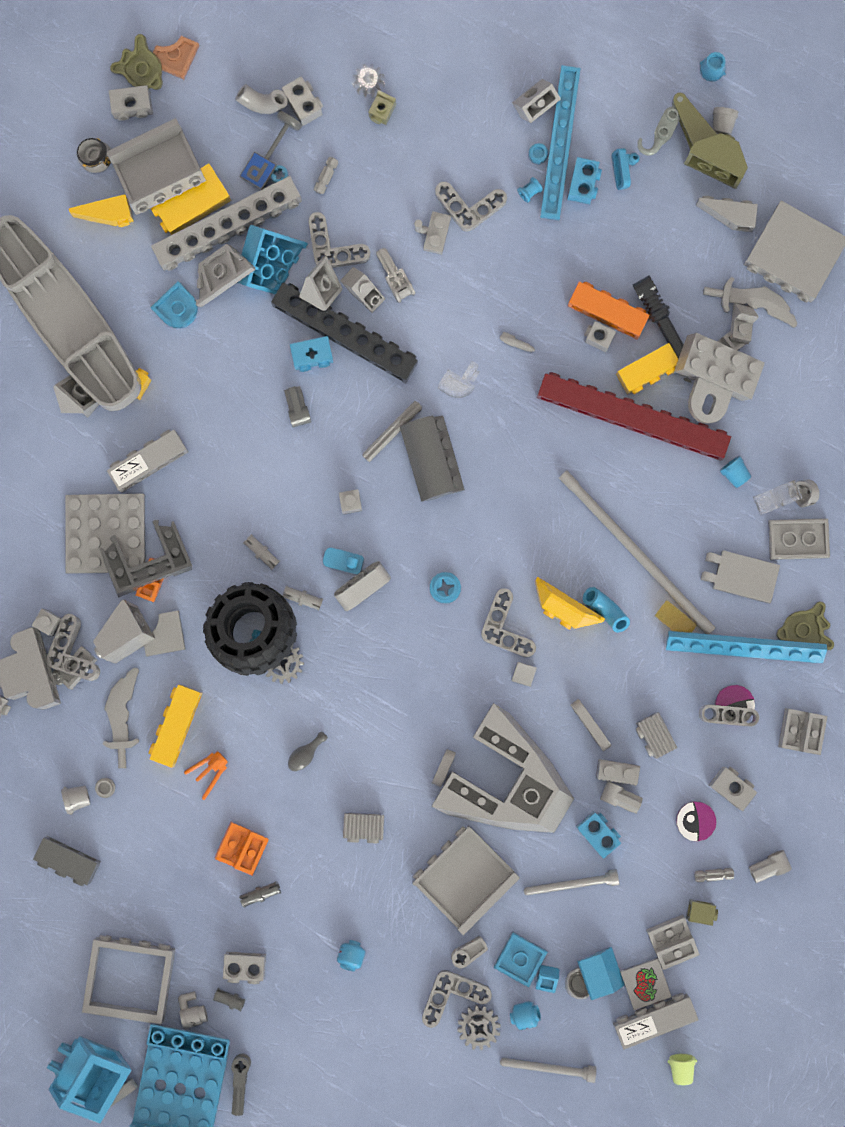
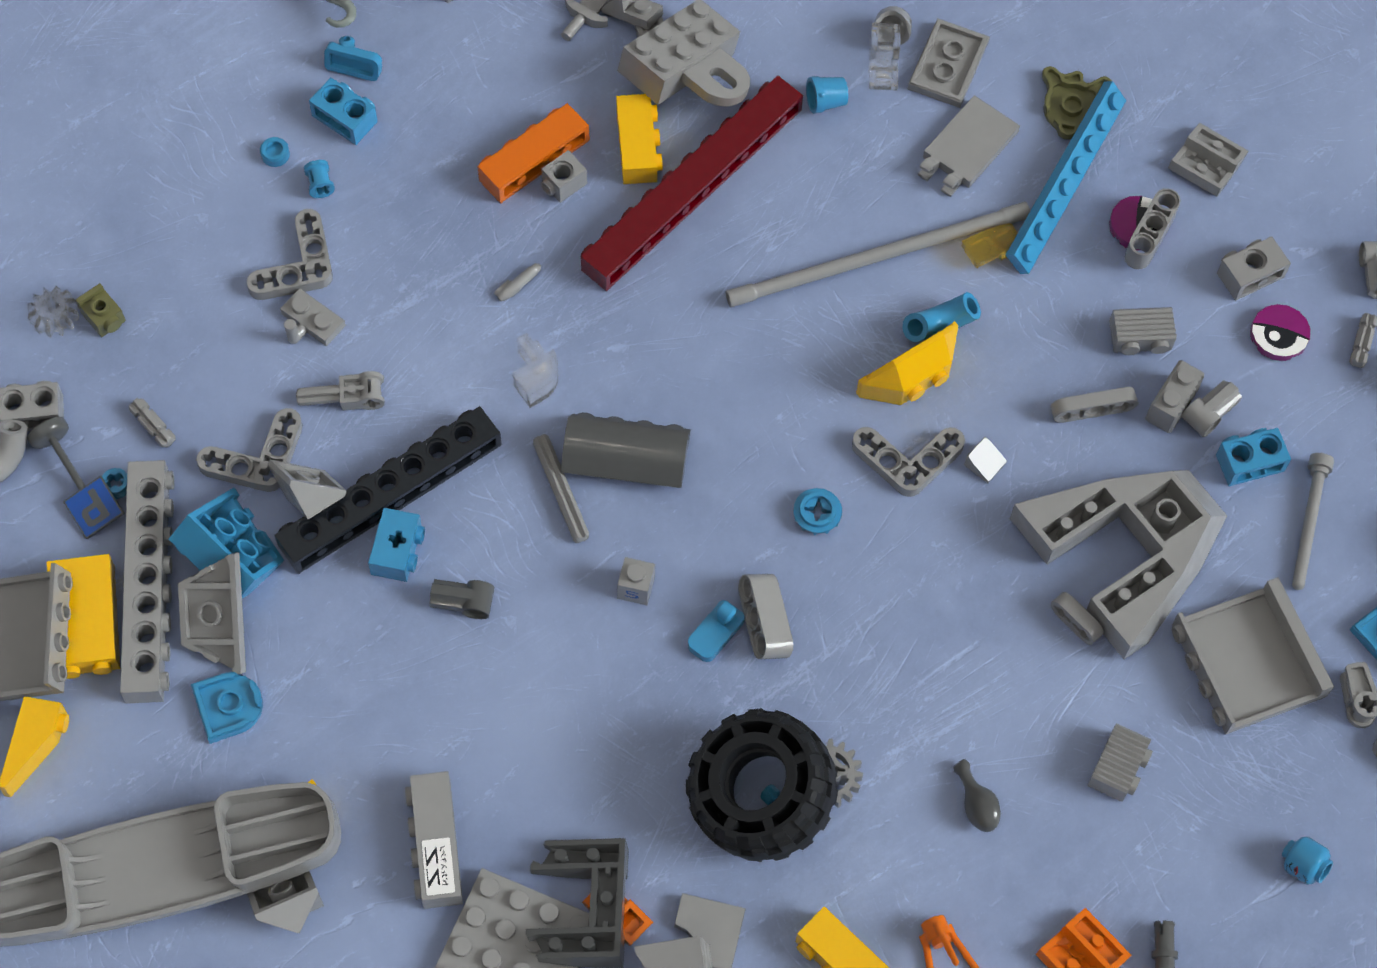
camera: 70 degrees left, 20 degrees down
(261, 552) = (650, 736): light grey pin -> none
(302, 598) = (751, 700): light grey pin -> none
(362, 289) = (339, 439): light grey slope -> none
(536, 100) = (204, 118): light grey brick -> none
(560, 143) = (277, 118): dark azure plate -> none
(659, 313) = (532, 96): black piece -> none

